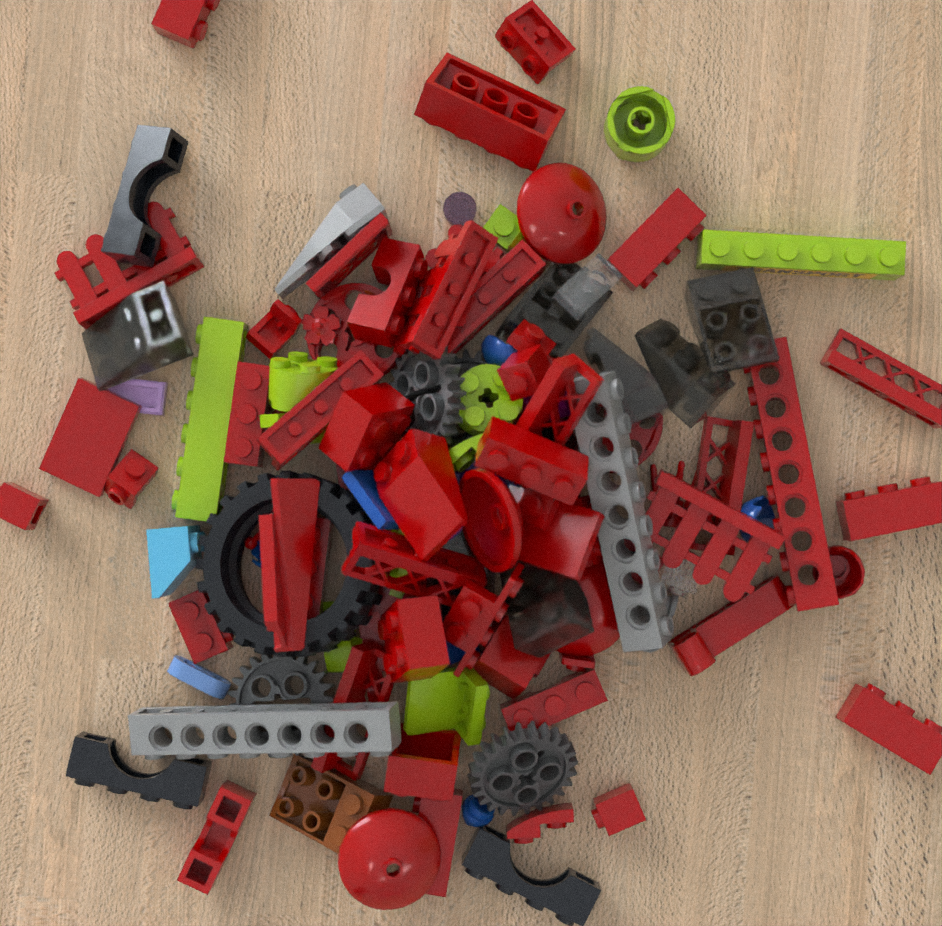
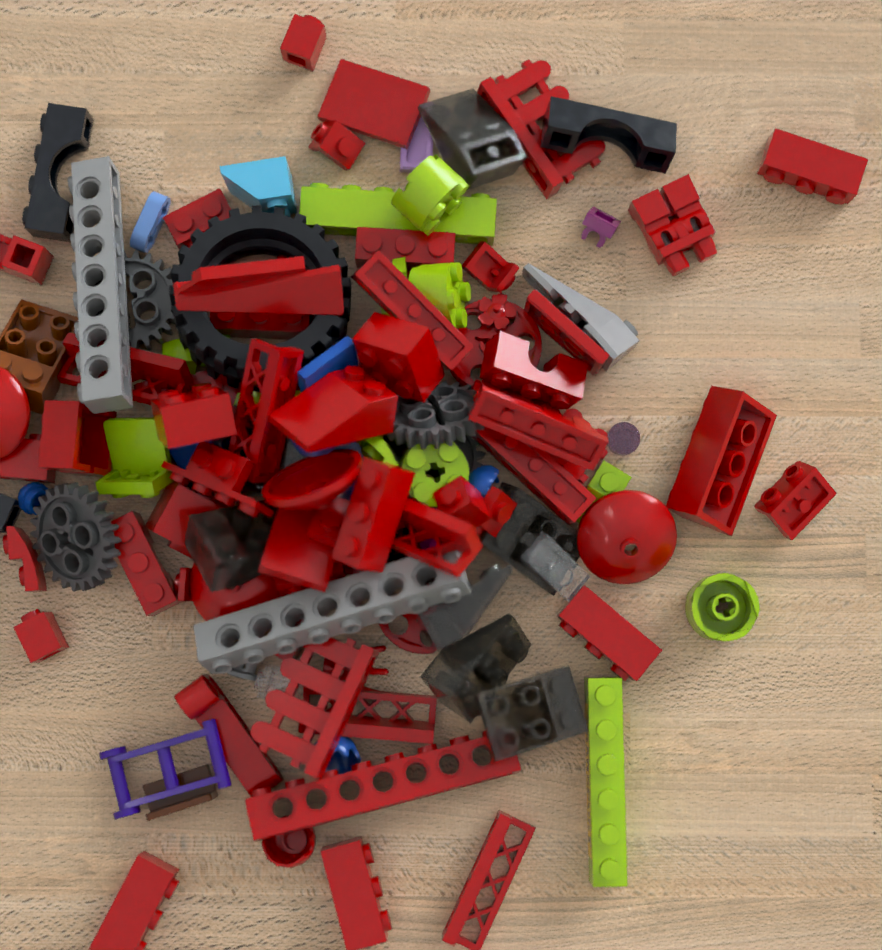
camera: 85 degrees right, 5 degrees down
(198, 382) = (430, 193): none -> lime brick
(236, 211) = (599, 222): none -> magenta tile
(250, 124) = (653, 217): none -> red hips
(782, 678) = (184, 800): none -> reddish brown panel
(794, 726) = (117, 755): none -> dark purple piece

